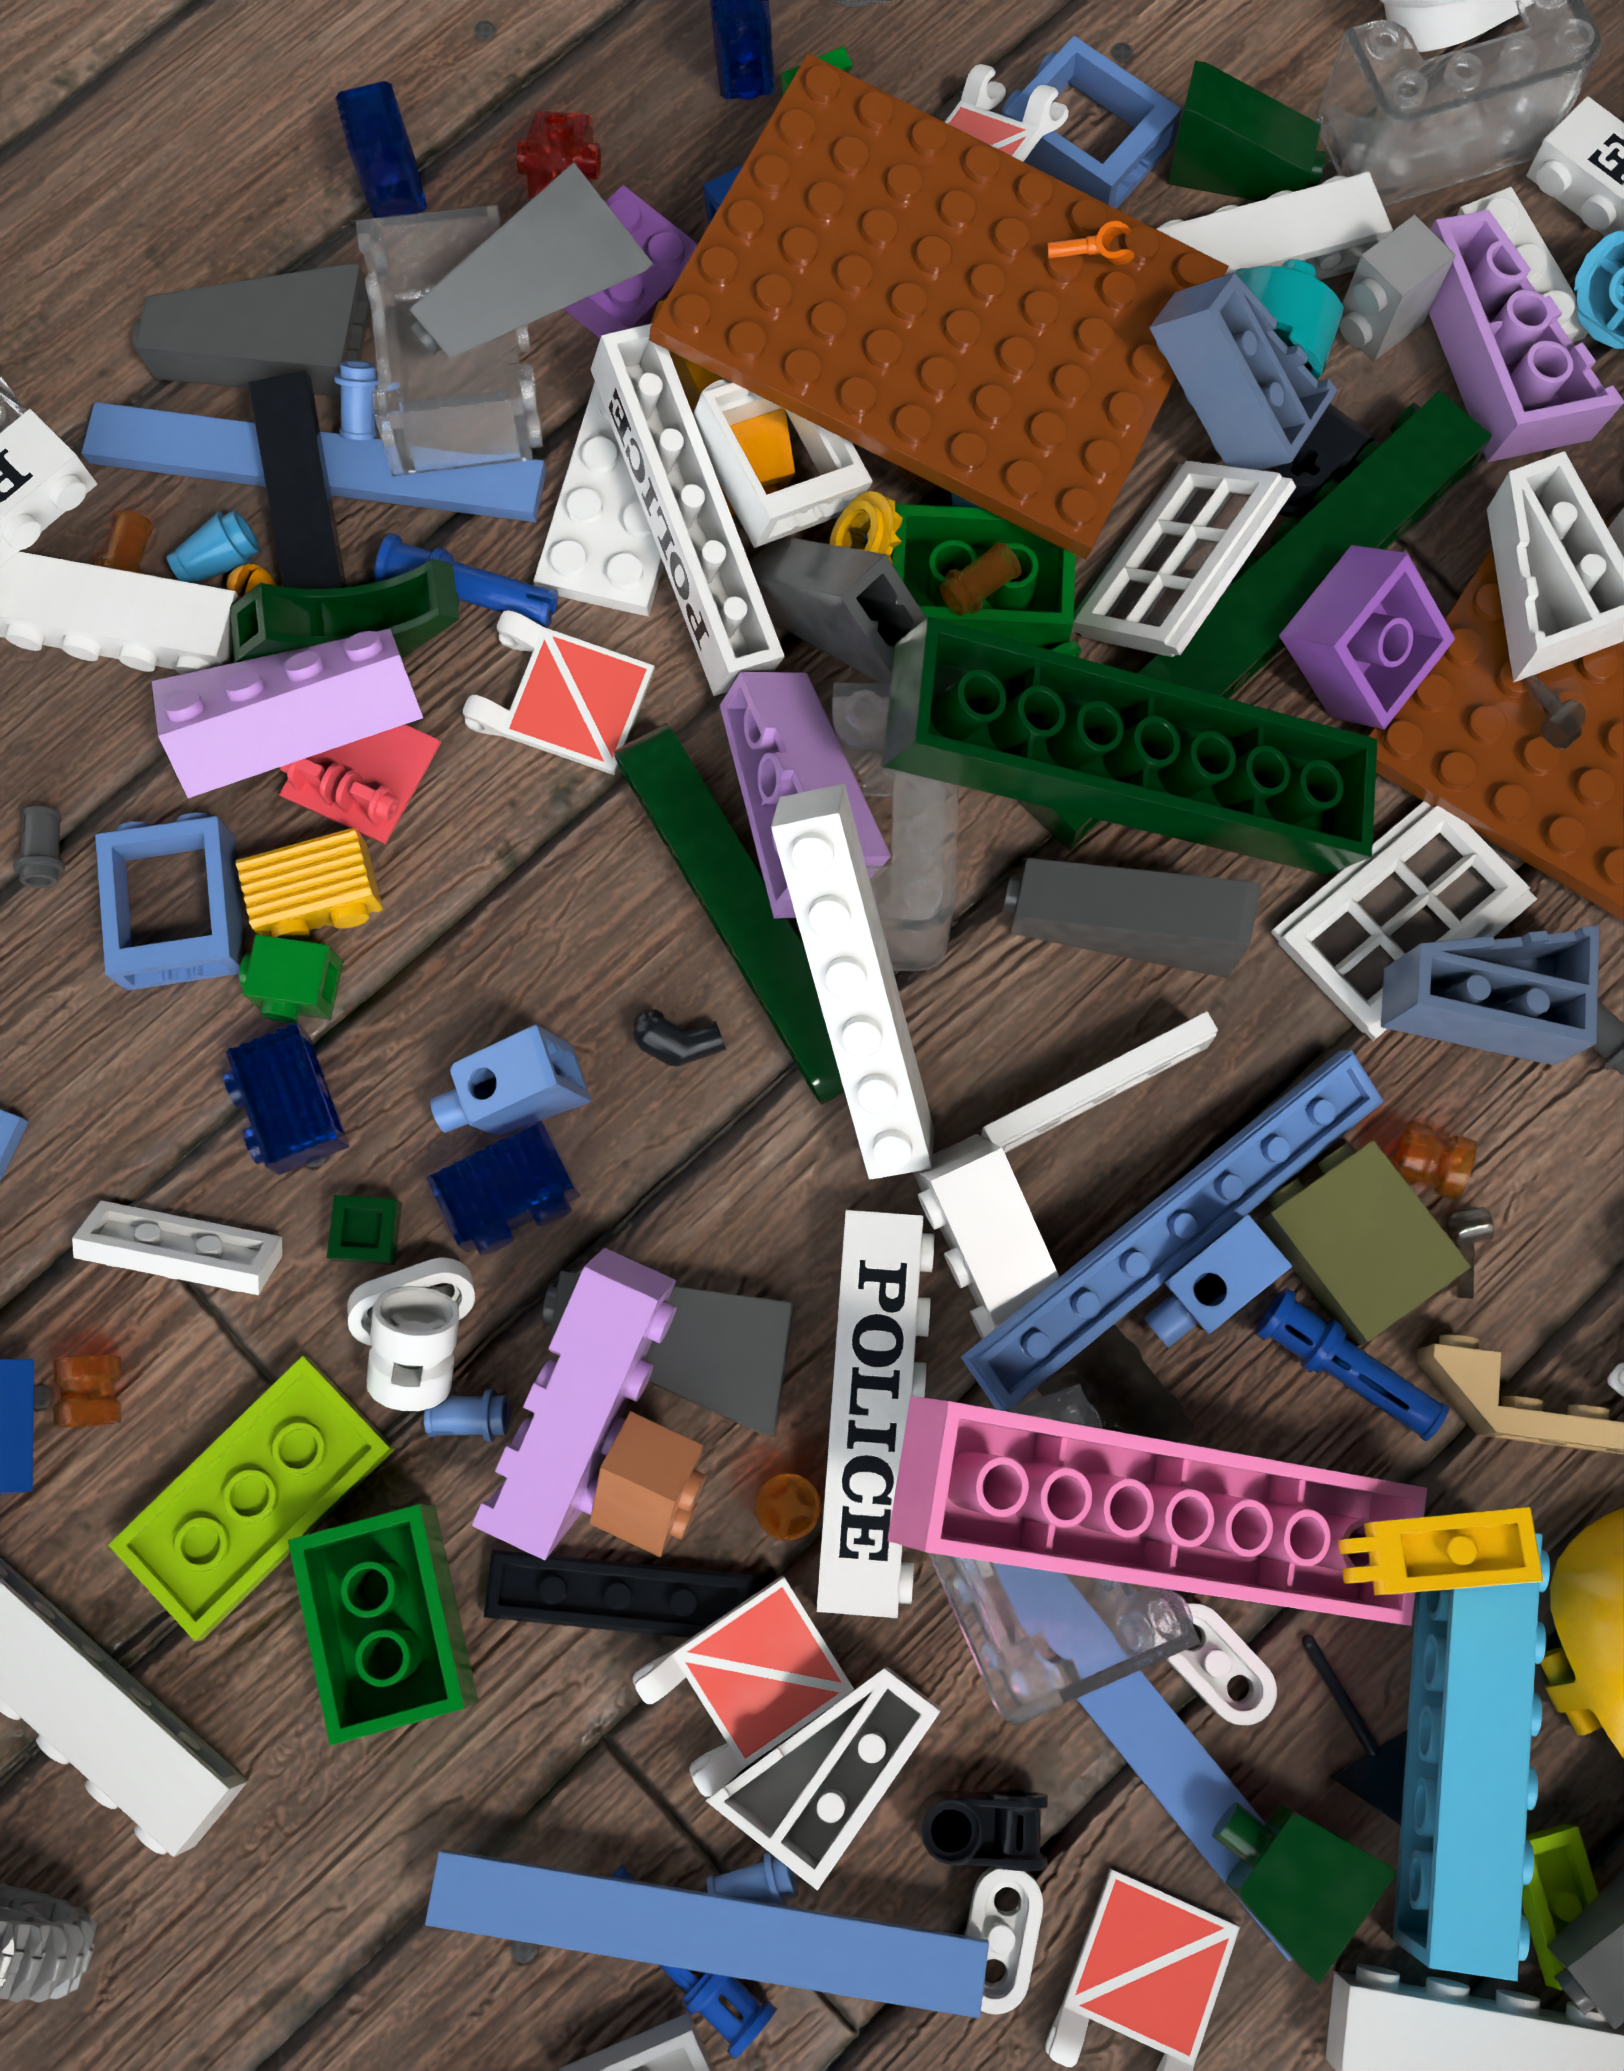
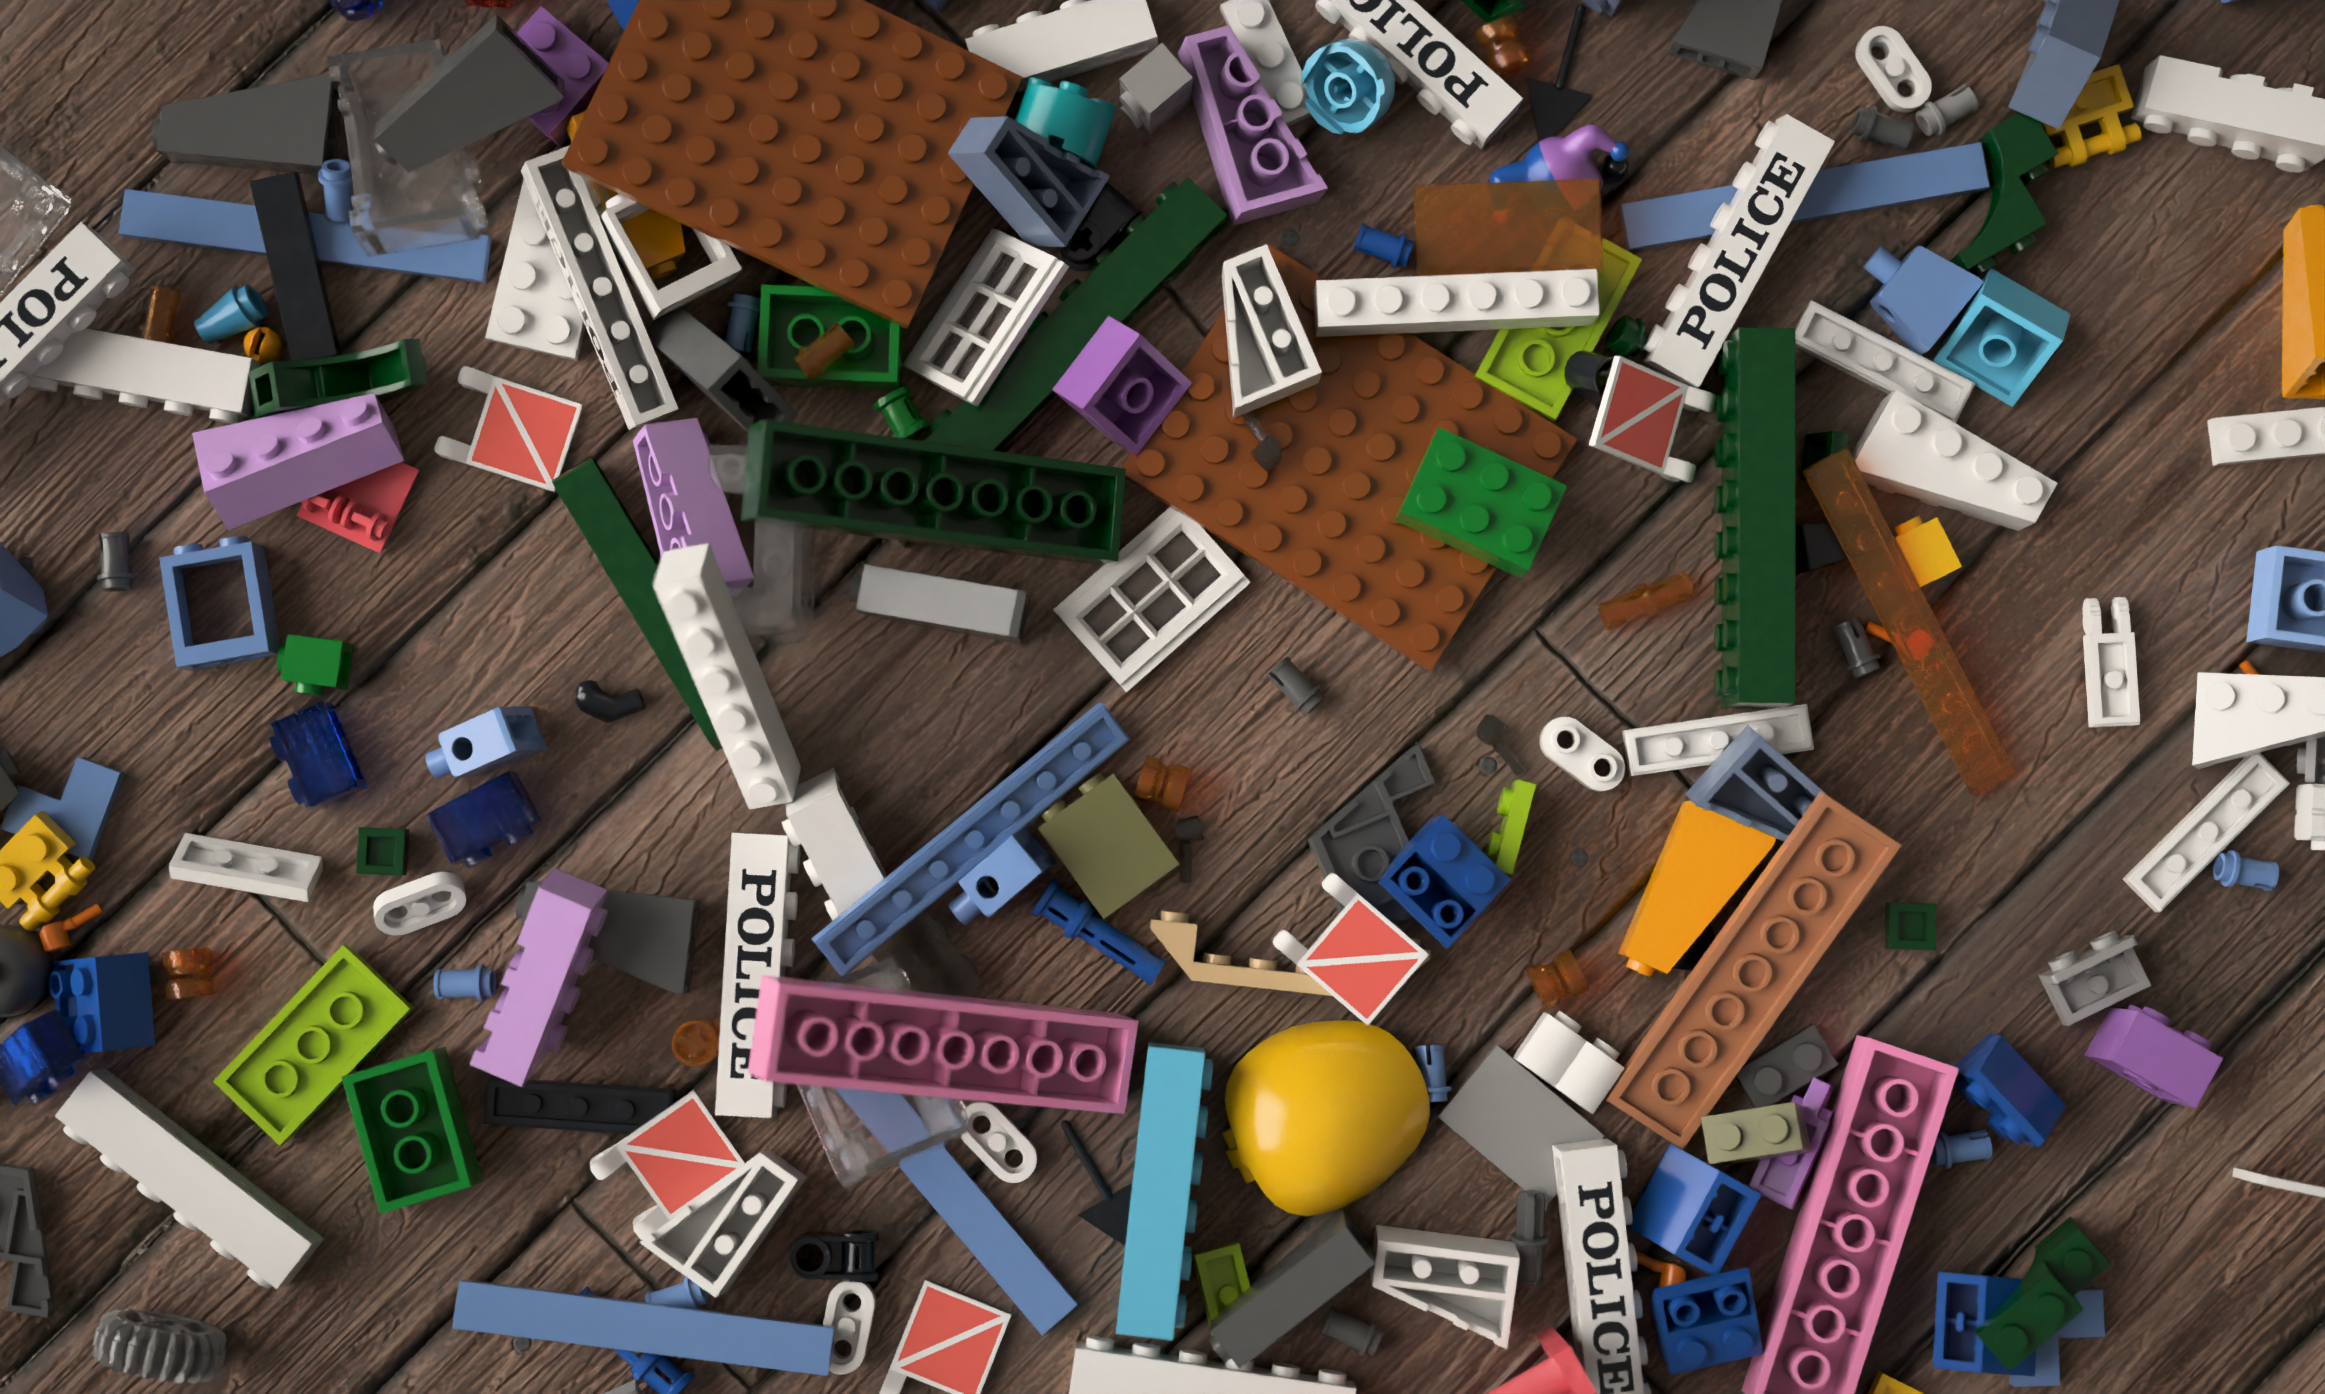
camera: 10 degrees left, 10 degrees up
(310, 886) = (324, 591): yellow brick -> none
(412, 1348) = (422, 939): white wheel -> none
(471, 583) = (391, 327): blue pin -> none
(648, 1485) = (594, 1032): nougat brick -> none
(872, 515) = (737, 312): yellow gear -> none
(1095, 244) = (913, 76): orange hand -> none
(1102, 1083) = (919, 734): white tile -> none
(1301, 1883) = (1045, 1283): dark green torso -> none
(1447, 1552) = (1135, 1067): yellow hinge -> none
(1500, 995) = (1209, 662): sand blue wedge -> none

